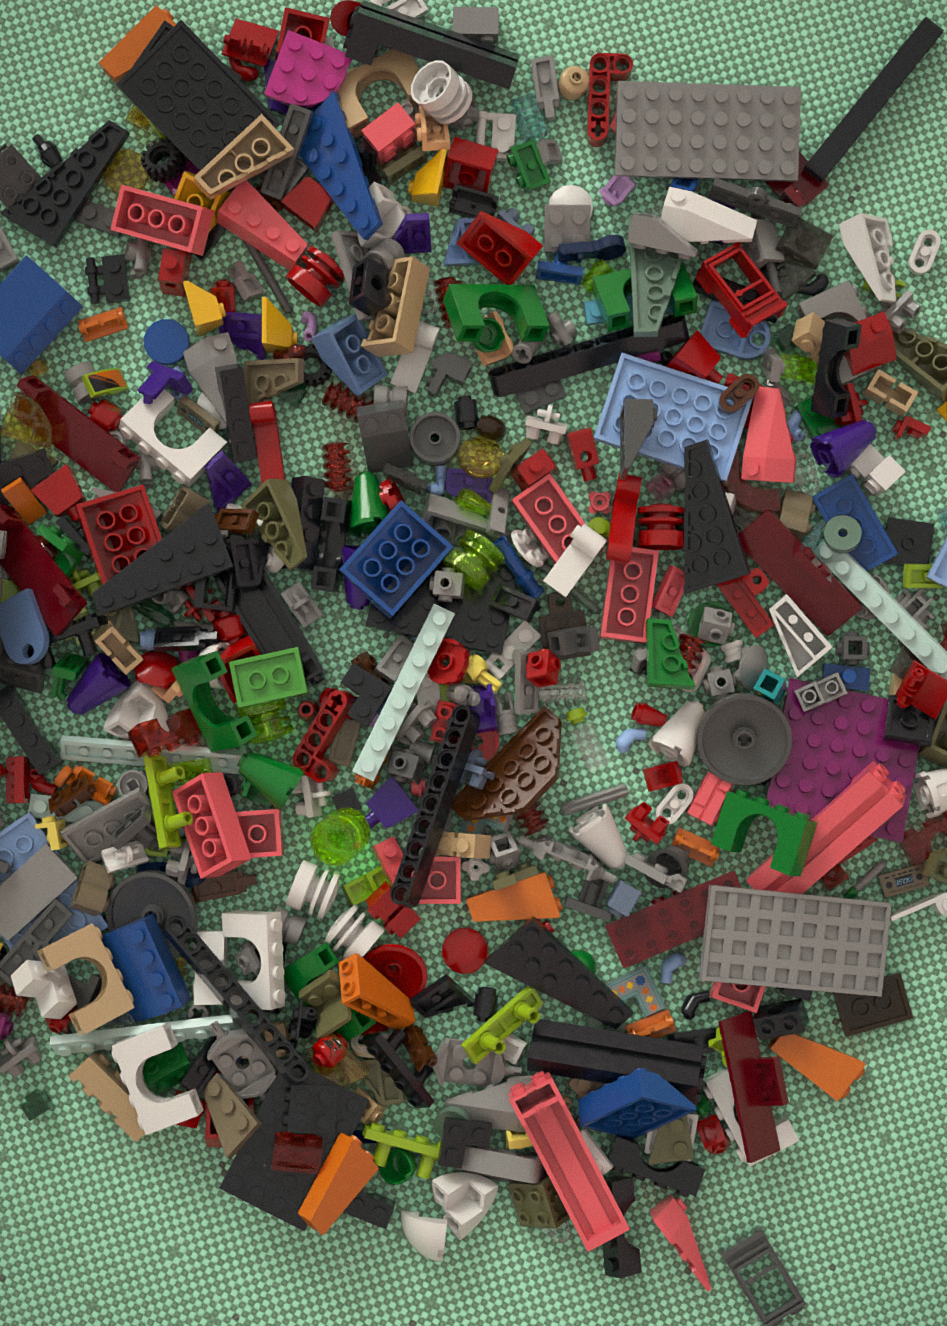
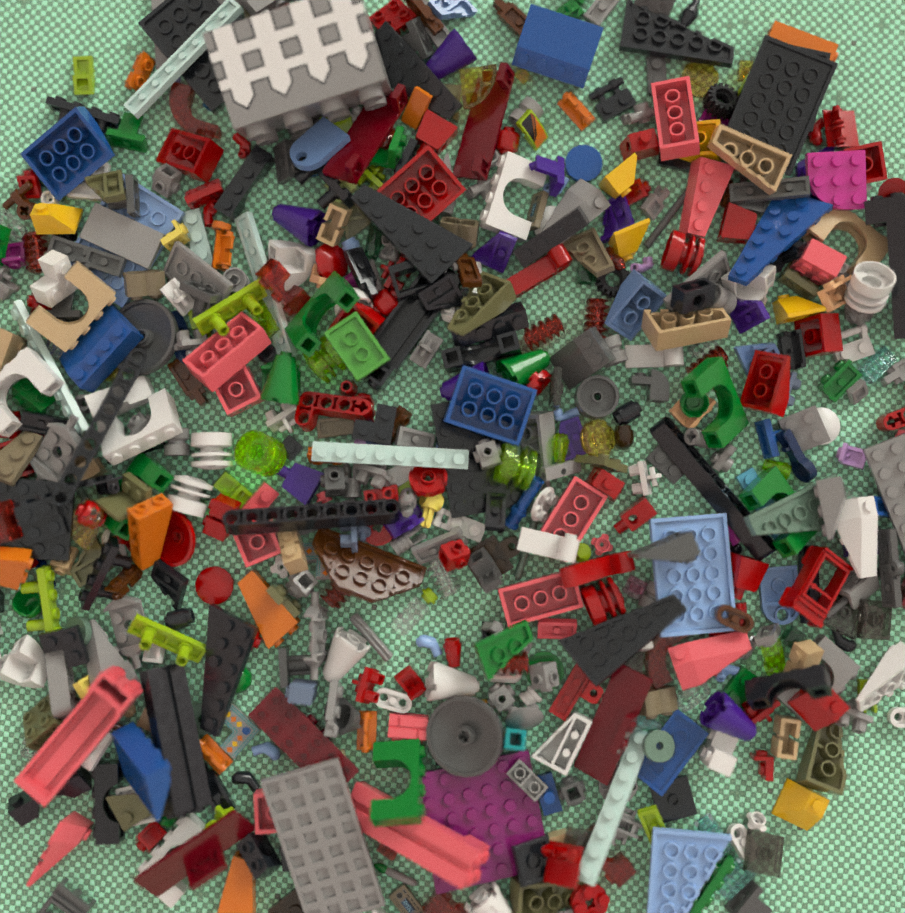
camera: 65 degrees right, 0 degrees up
(63, 801) = (200, 234): reddish brown hinge -> none
(69, 668) = (301, 194): green piece -> none

